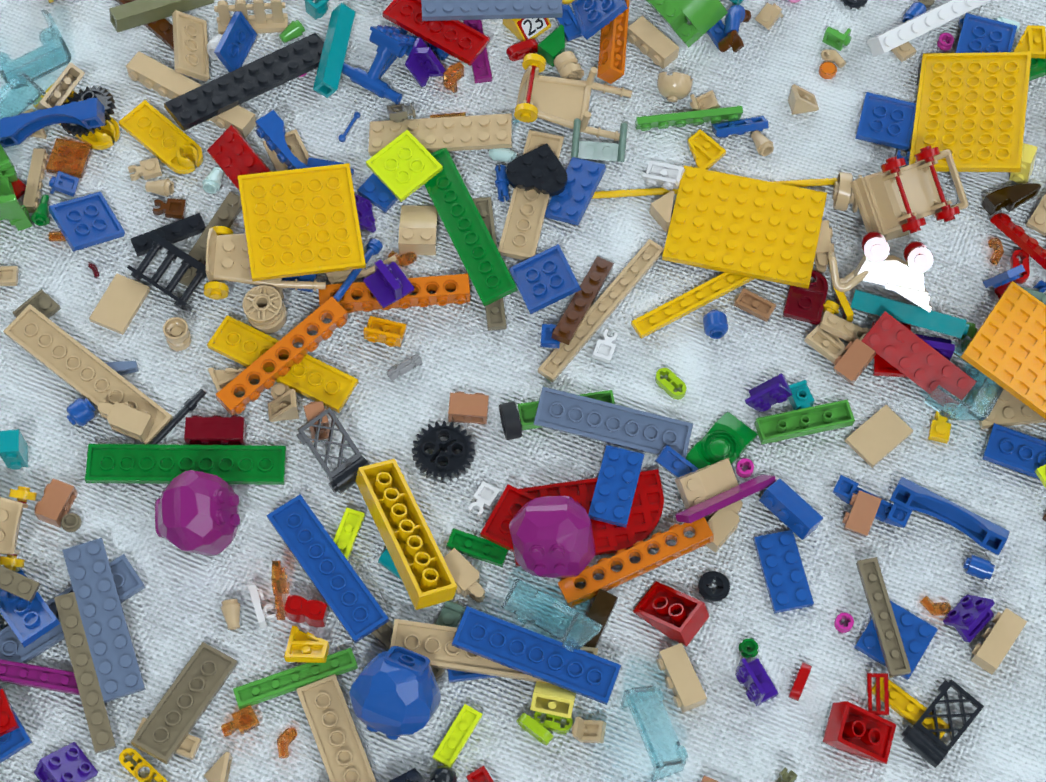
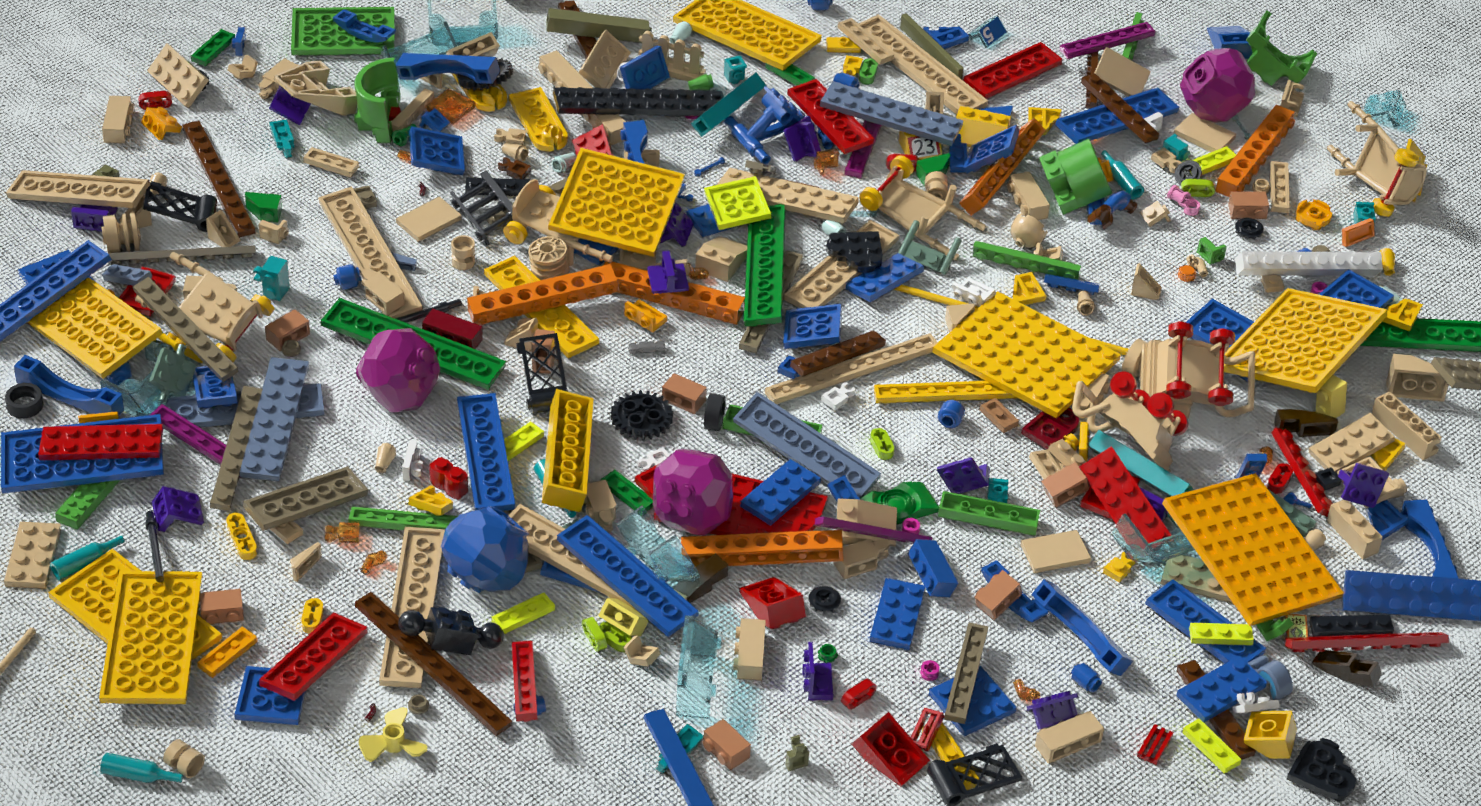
camera: 25 degrees right, 20 degrees down
(280, 588) = (436, 443): clear orange wing -> none
(372, 248) = (675, 252): blue piece -> none
(502, 183) = (820, 251): blue pin -> none

